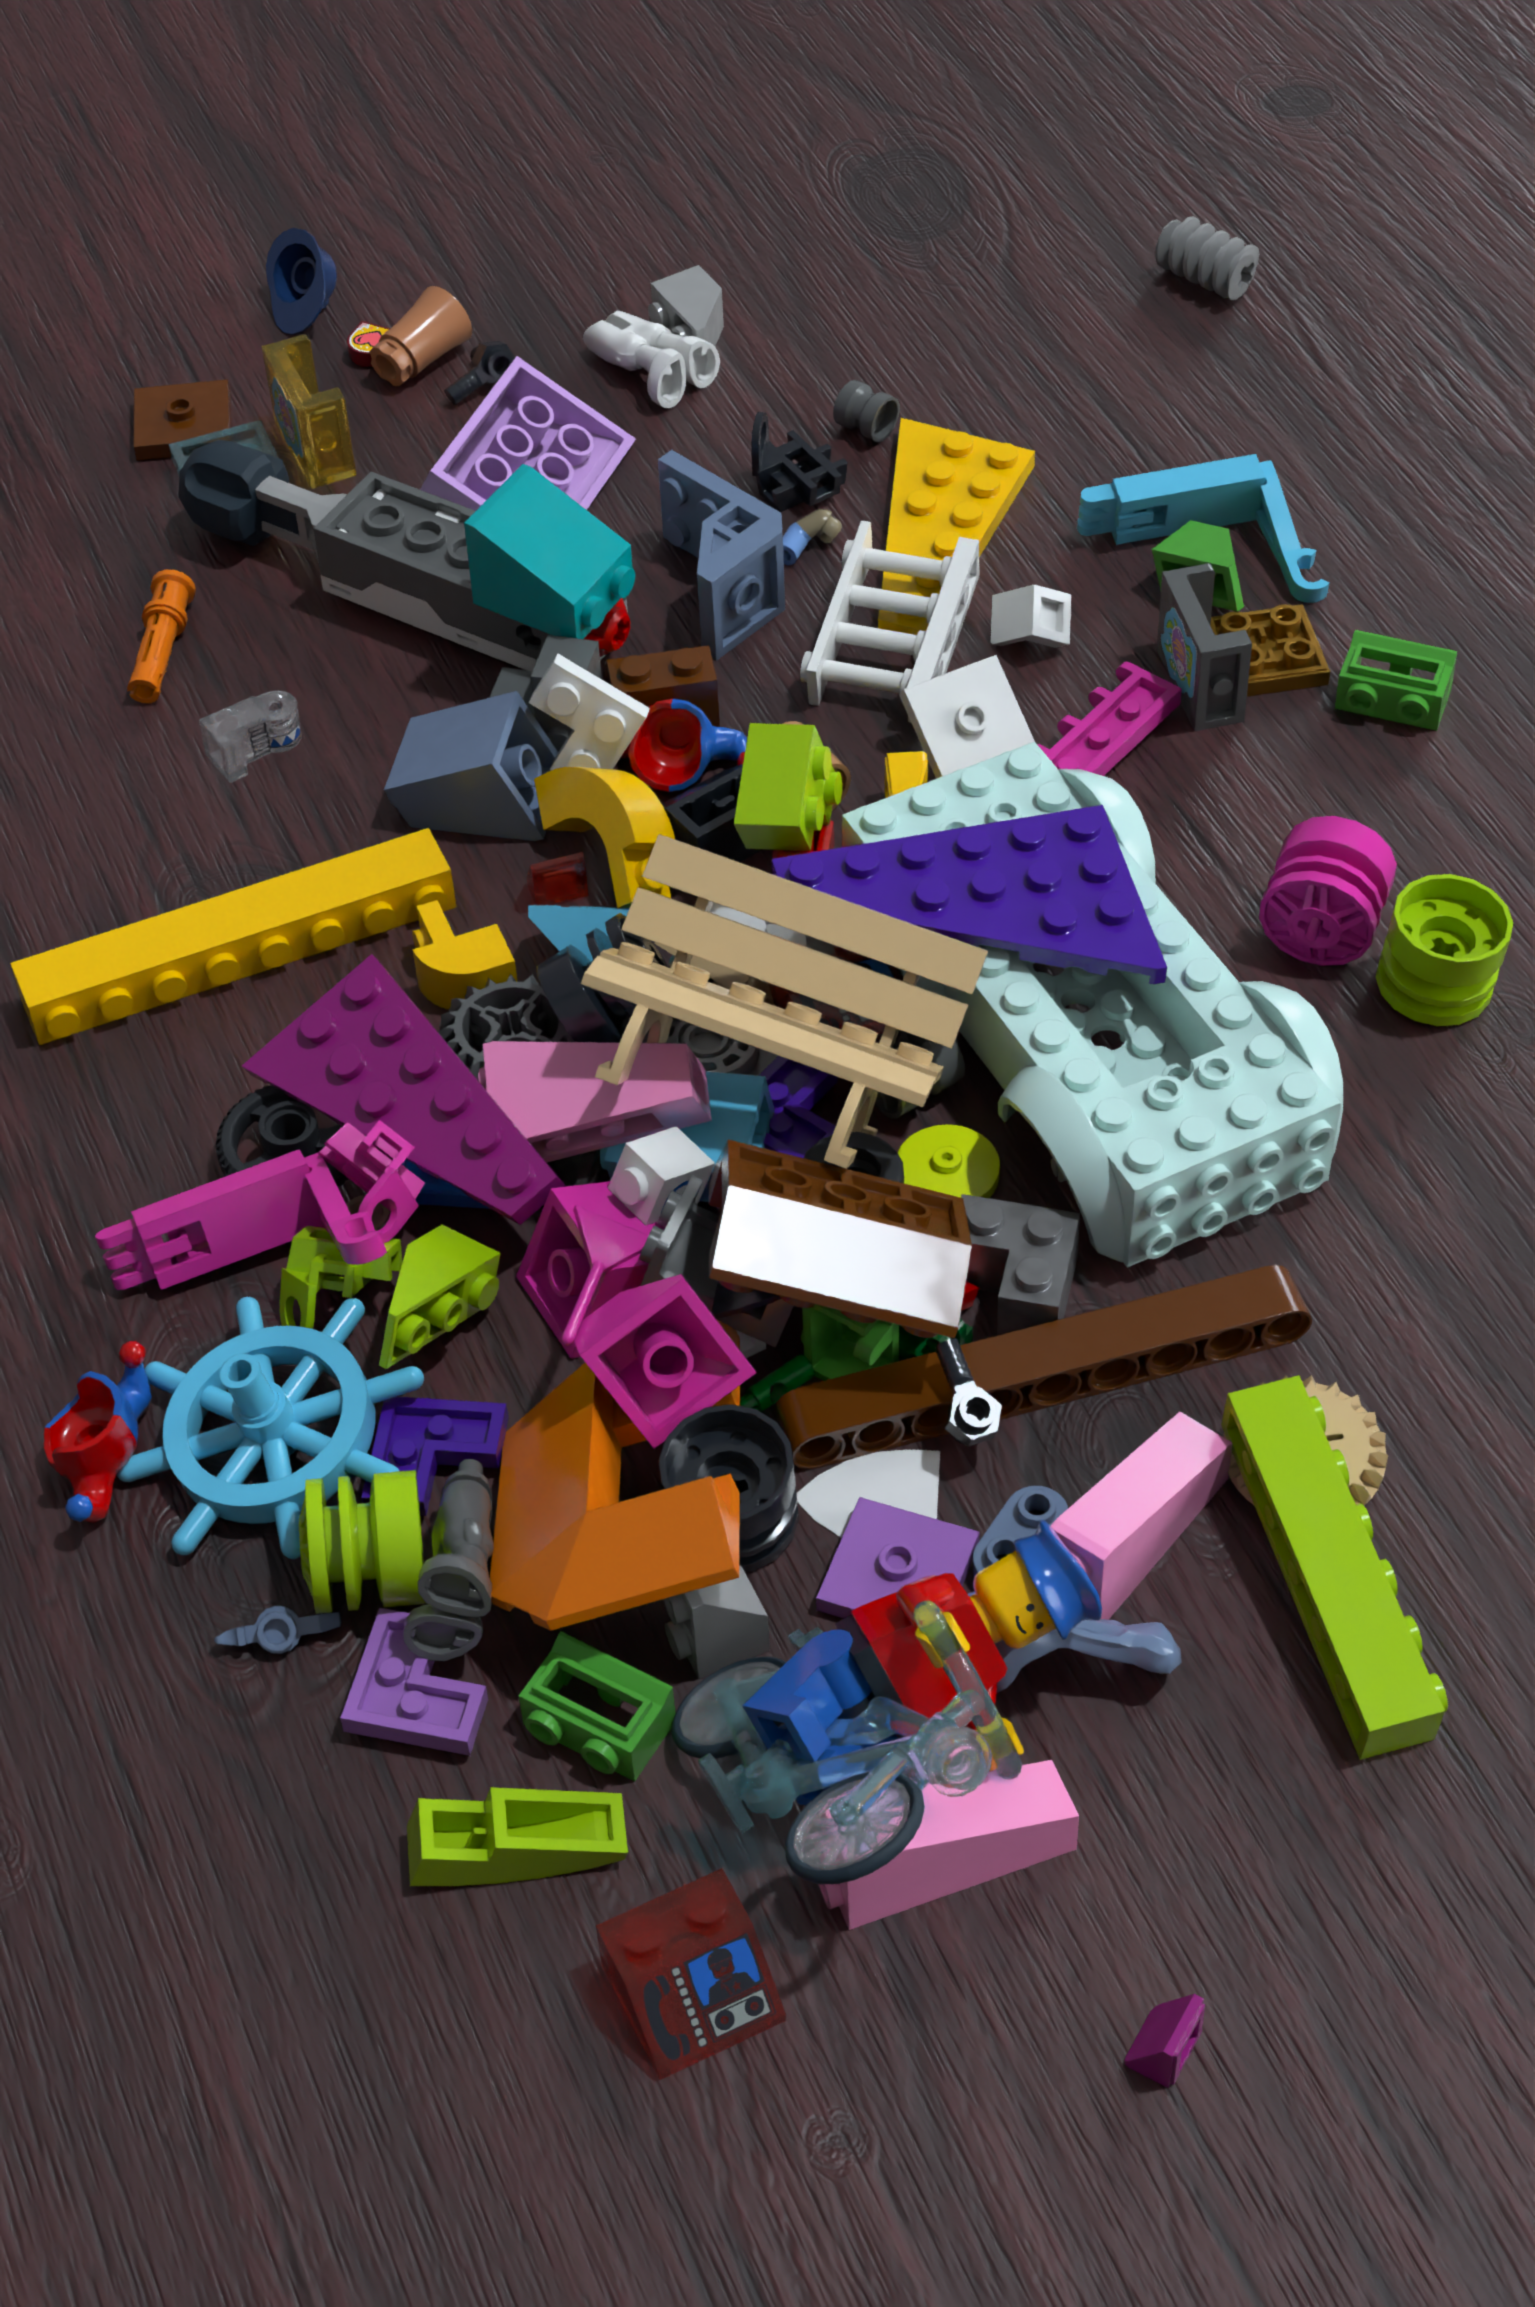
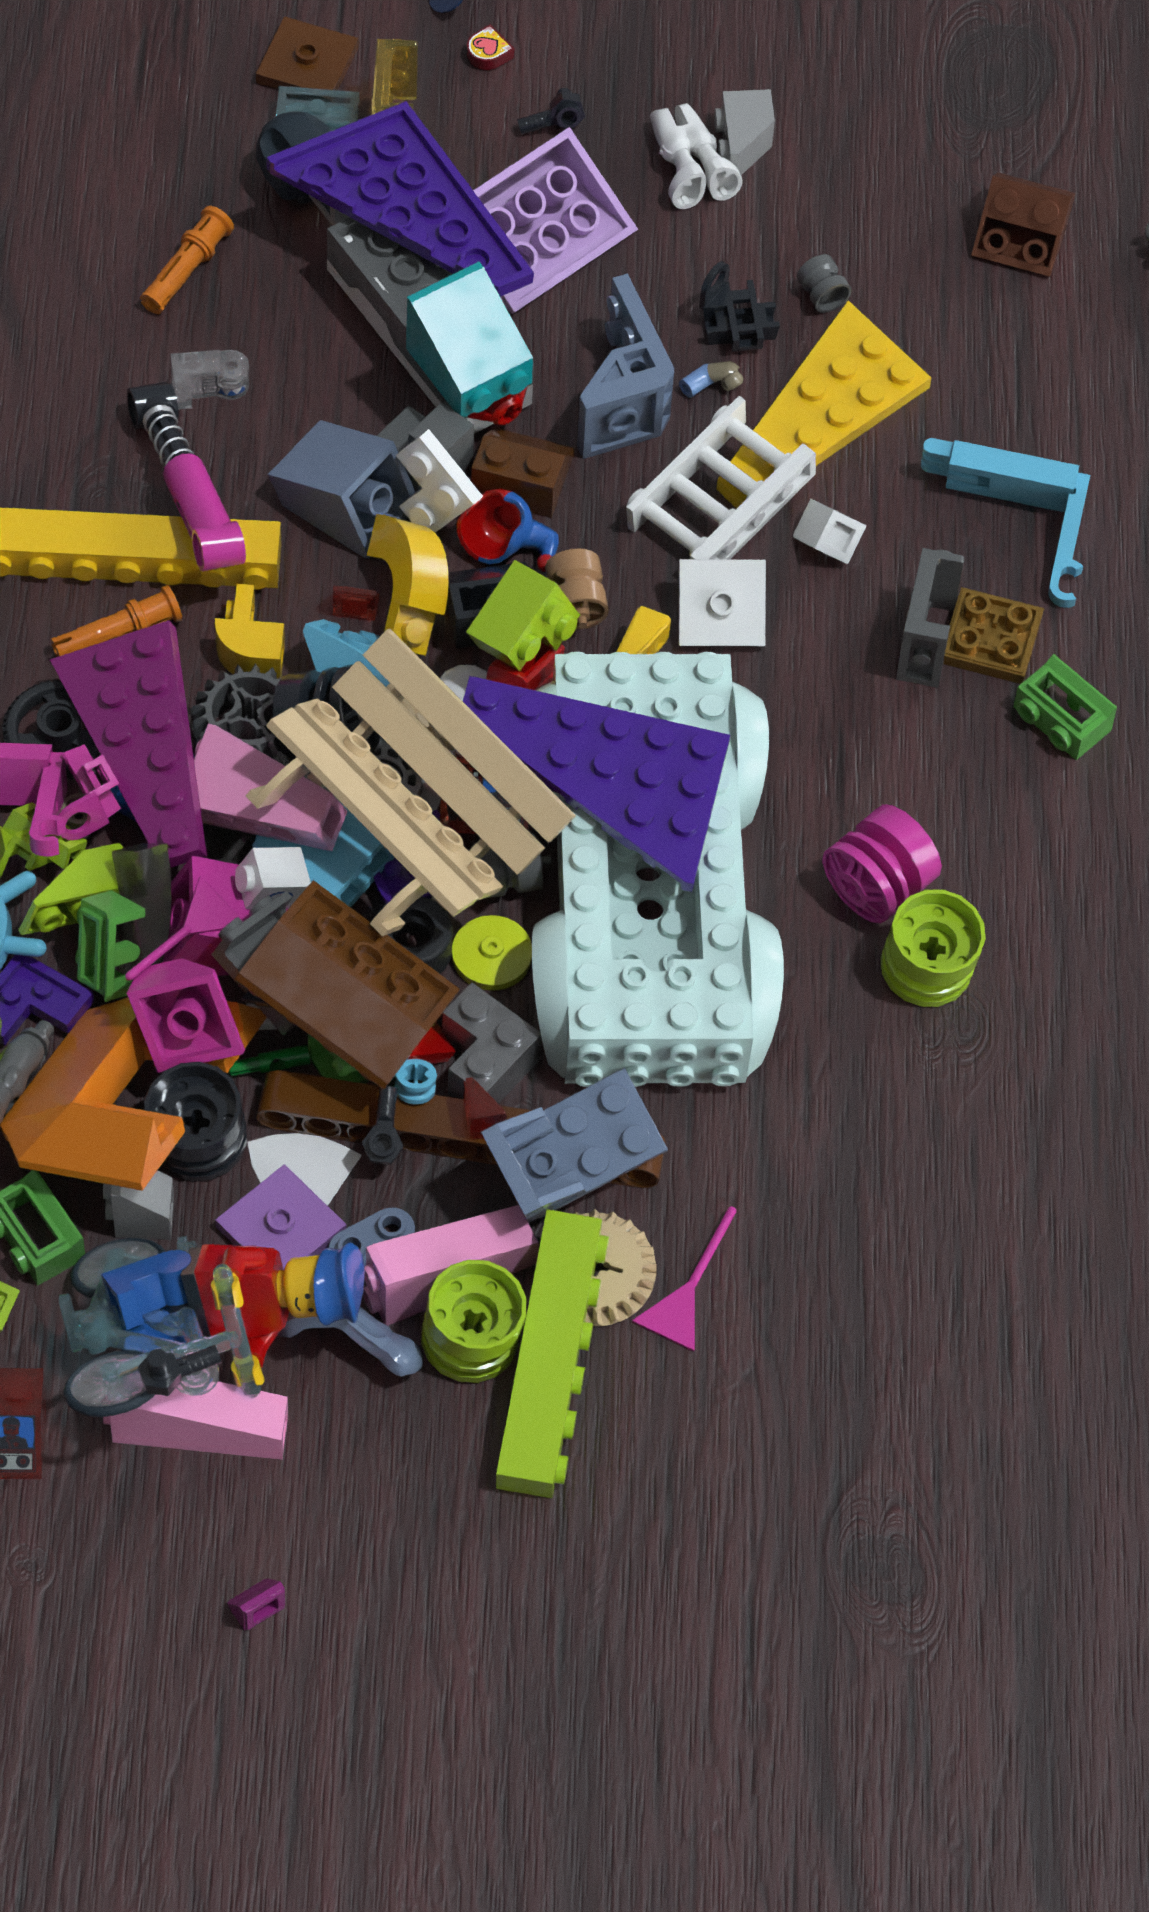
camera: 20 degrees right, 10 degrees up
(307, 989) = (134, 617): none -> orange pin
(367, 858) = (213, 535): none -> dark pink piece
(372, 455) = (406, 188): none -> dark purple wing
(421, 336) = (522, 63): nougat plant -> none
(493, 1339) = (97, 944): none -> bright green window
(517, 1285) = (146, 880): none -> clear smoke slope
(929, 1766) = (163, 1372): none -> black piece
(975, 1328) = (416, 1092): none -> medium azure bush
(1030, 289) = (1023, 223): none -> copper slope
(1072, 1322) = (480, 1109): none -> clear red slope
(1115, 723) = (817, 656): dark pink hinge -> none
(1198, 545) = (986, 541): bright green slope -> none
(1206, 1312) = (574, 1144): none -> sand blue bracket
(1217, 1565) = (473, 1298): none -> lime wheel
(1427, 1460) = (675, 1314): none -> dark pink piece

